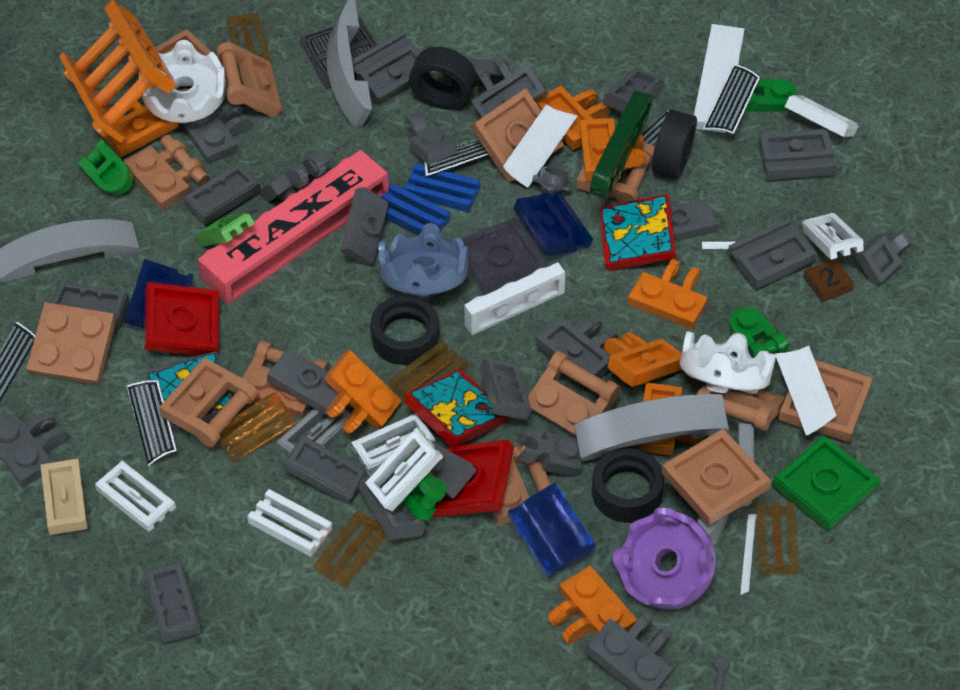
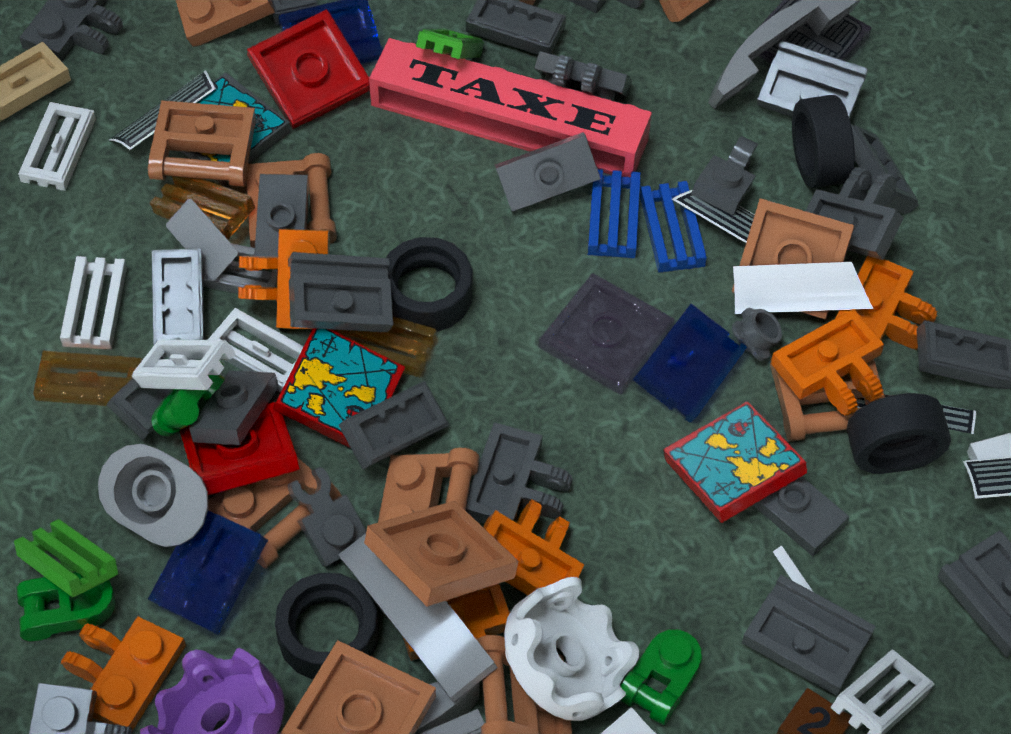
camera: 60 degrees right, 5 degrees up
(284, 434) = (196, 230): none -> light grey sticker
(397, 367) = (340, 292): none -> dark grey plate
(422, 267) = (541, 236): sand blue plate -> none
(484, 532) = (153, 494): none -> light grey piece
(497, 603) = (74, 554): none -> bright green tile
(514, 298) = (542, 373): white plate -> none
(529, 610) = (74, 612): none -> green plate
(621, 144) = (832, 366): dark green beam -> none
(638, 384) = (440, 552): none -> nougat plate
(668, 299) = (657, 546): orange hinge -> none

